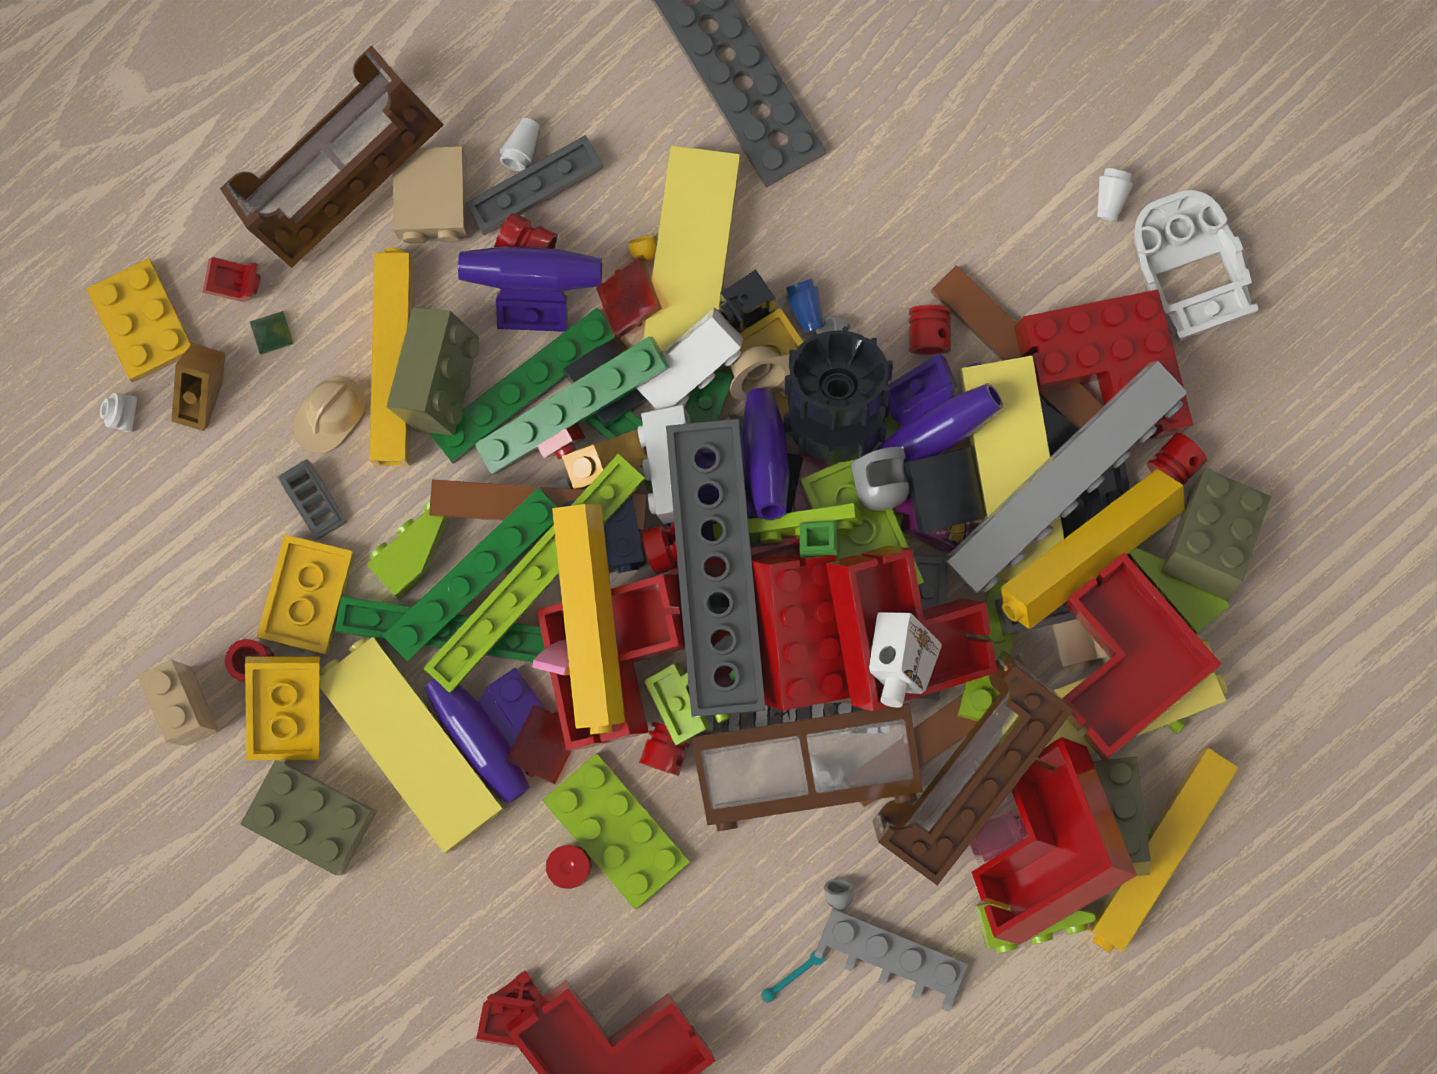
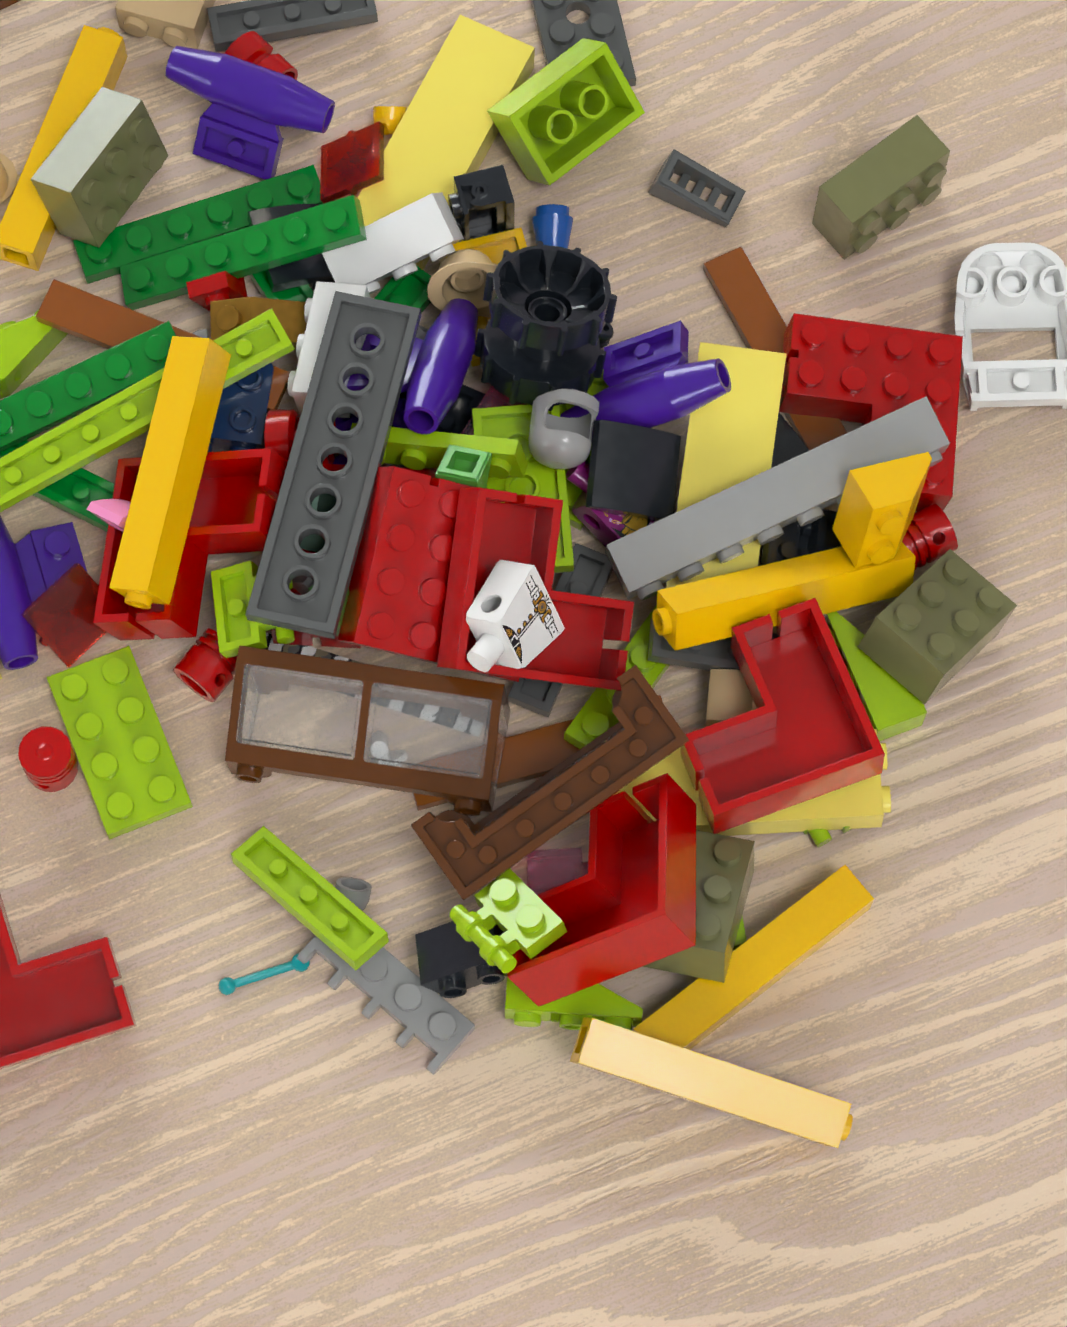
camera: 15 degrees right, 10 degrees down
(784, 201) = (566, 111): none -> lime brick
(810, 910) = (310, 898): none -> lime plate
(888, 237) = (690, 201): none -> dark grey slope
(929, 330) = (685, 298): red piece -> none
(946, 916) = (451, 963): none -> black hinge
(983, 882) = (518, 912): none -> lime plate
(1054, 184) = (881, 188): none -> olive brick
(1112, 194) = (950, 224): white cone -> none
(1150, 462) = (879, 508): none -> yellow slope
(1166, 956) = (712, 1082): none -> yellow brick

